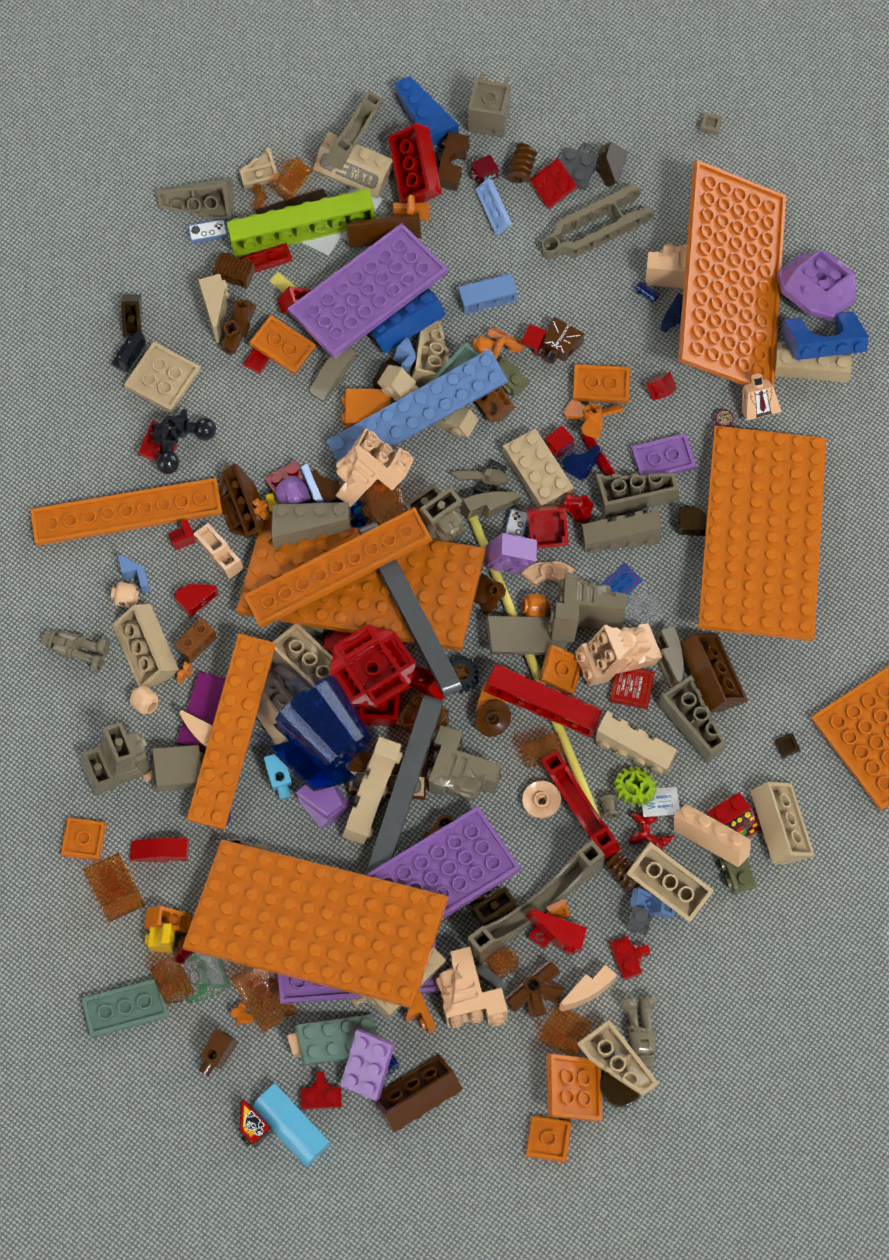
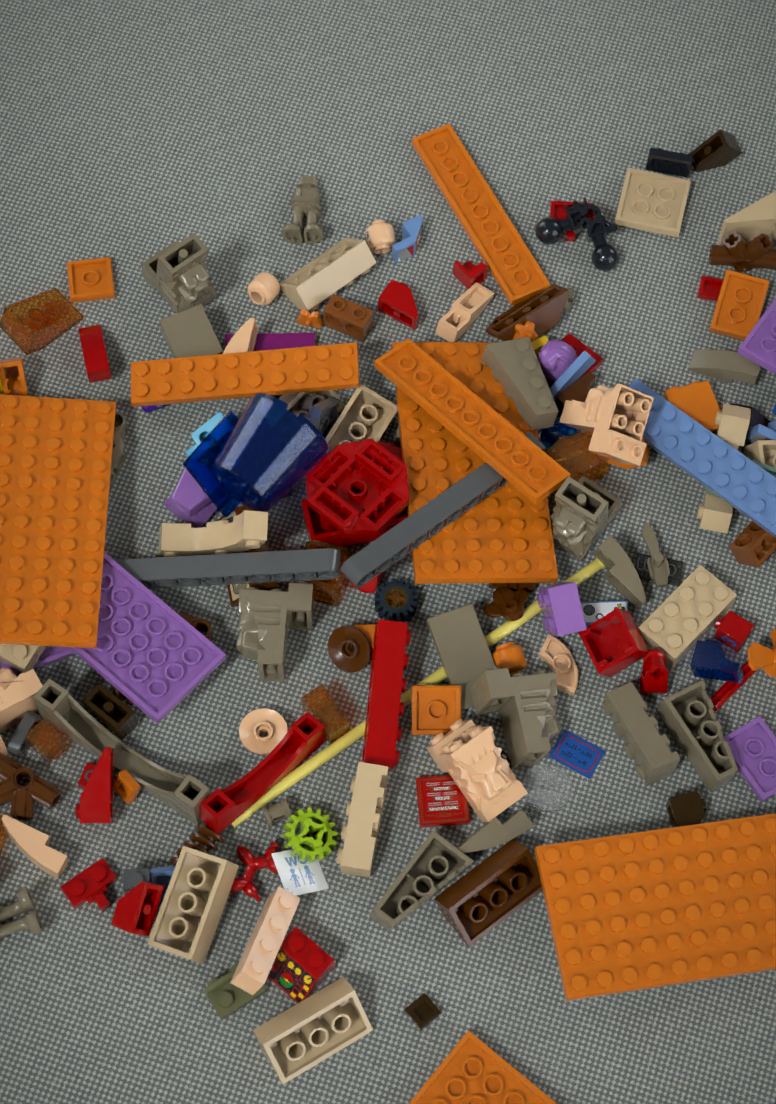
camera: 70 degrees right, 5 degrees down
(663, 923) = (138, 908): none -> red slope

